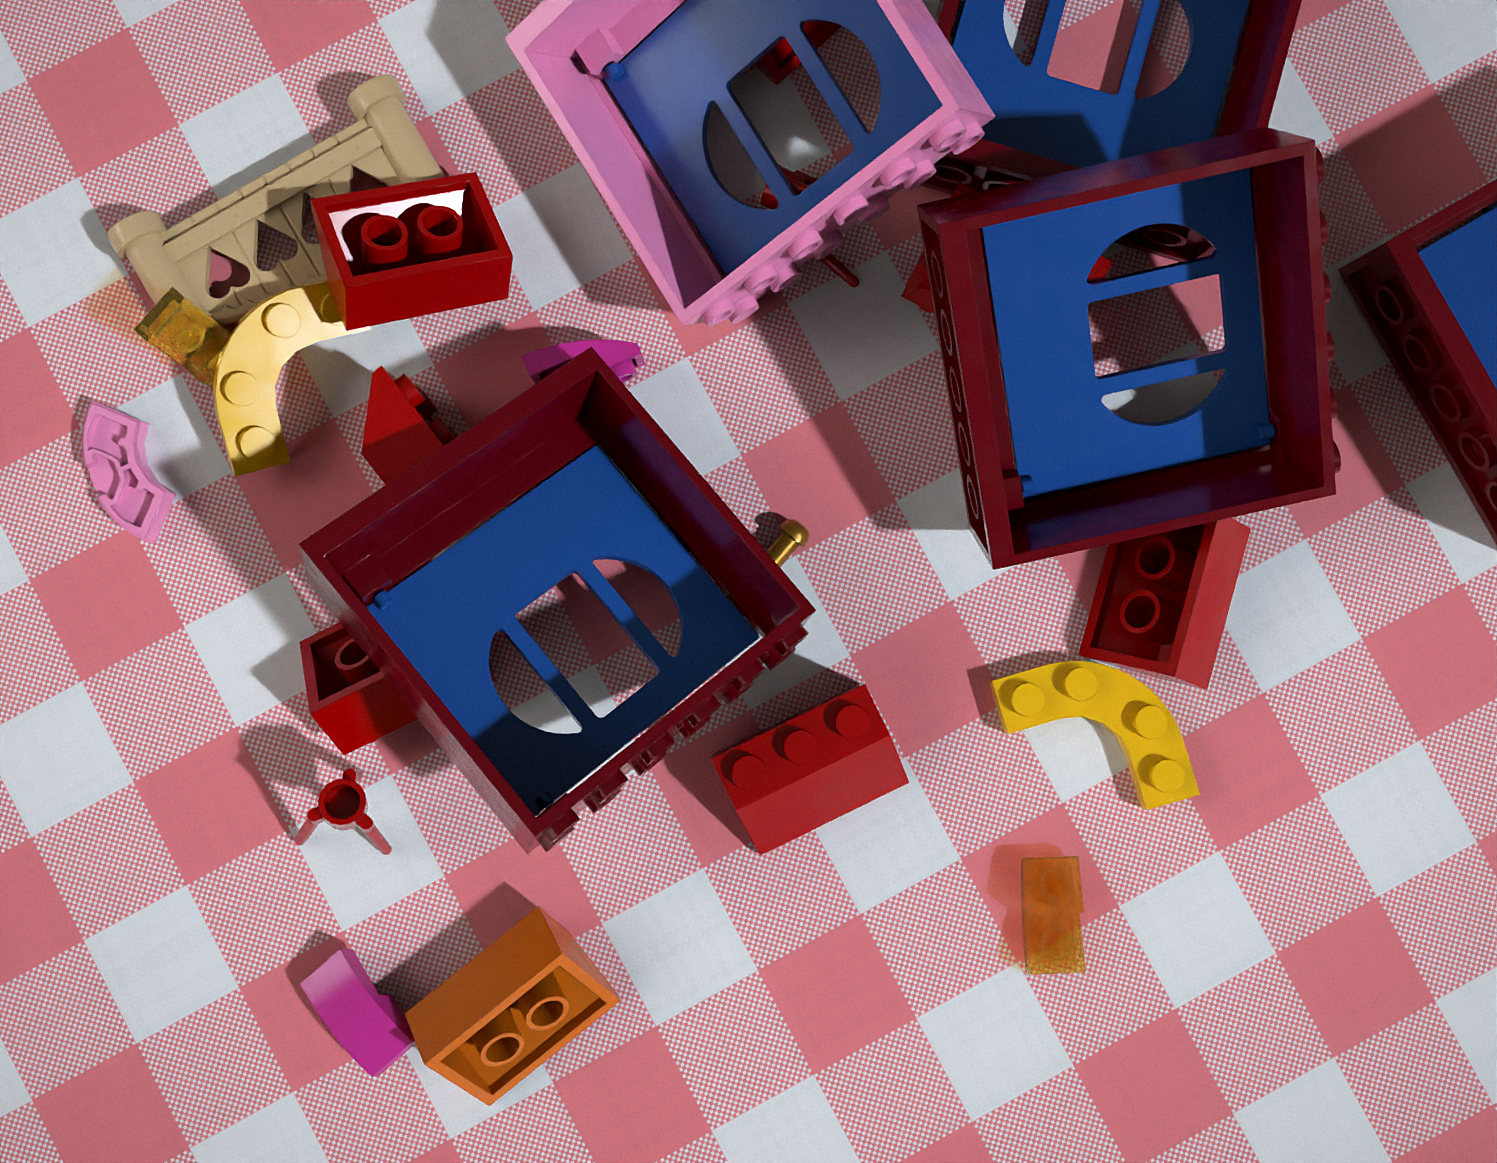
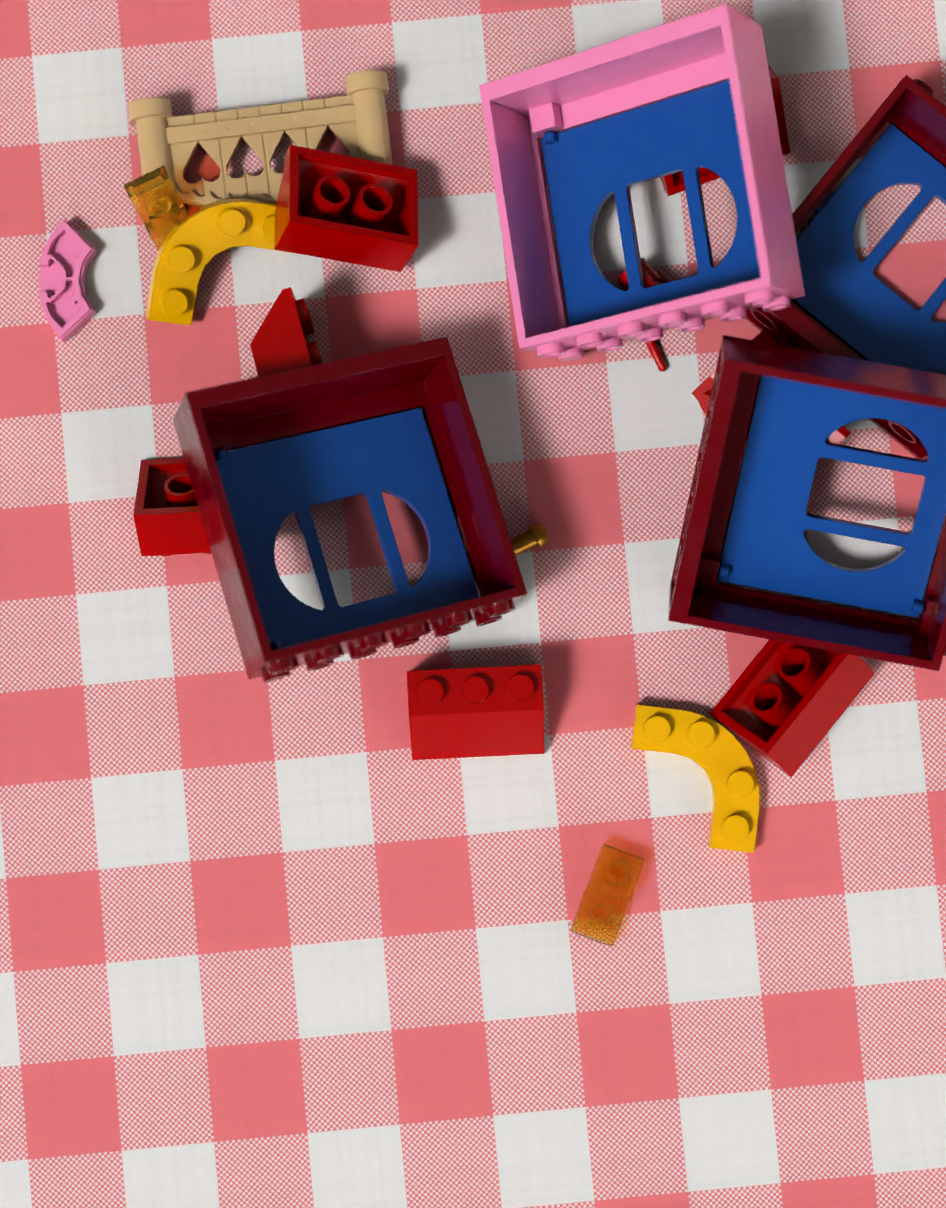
camera: 25 degrees right, 0 degrees up
(343, 807) = (128, 593): red plant -> none
(358, 1017) = (71, 747): dark pink slope -> none
(510, 1008) = (185, 791): orange slope -> none
(619, 355) = (463, 349): dark pink slope -> none

